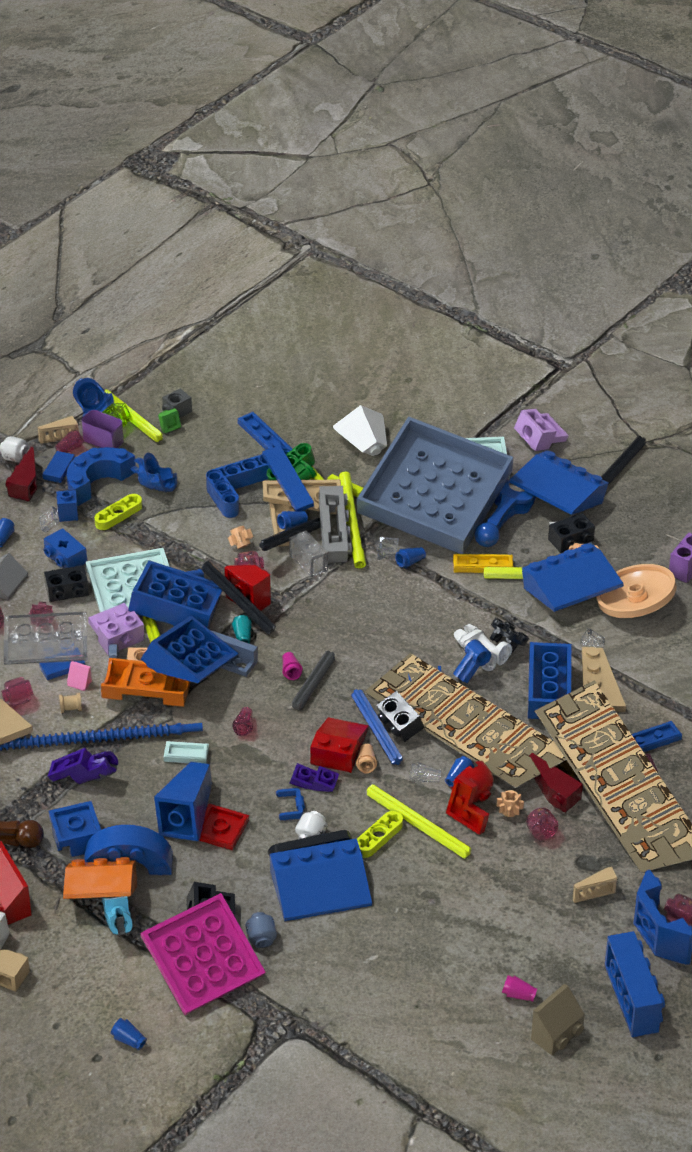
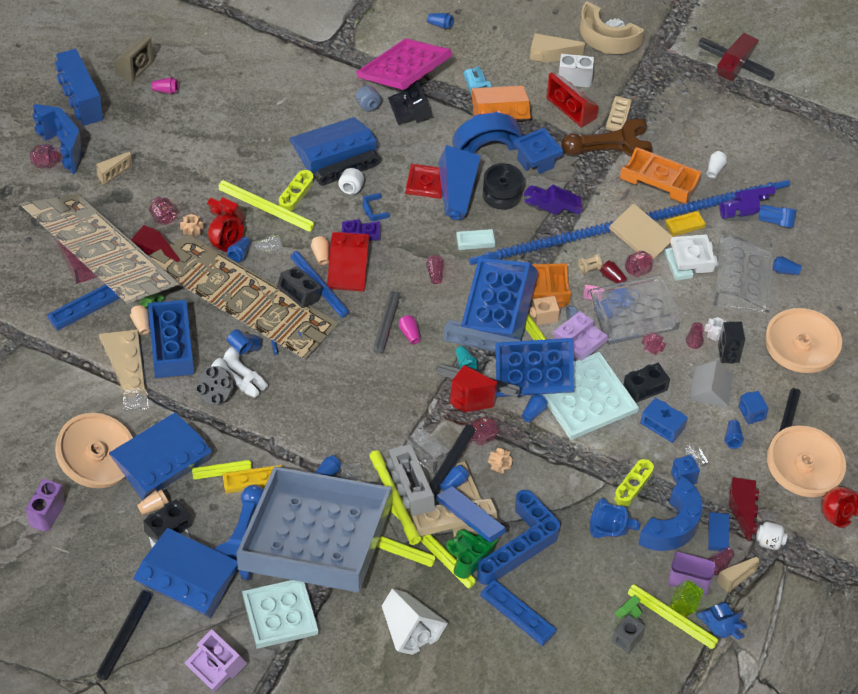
camera: 165 degrees right, 10 degrees up
(49, 691) = (613, 272): none -> dark red cone
(134, 790) = (502, 186): none -> black wheel

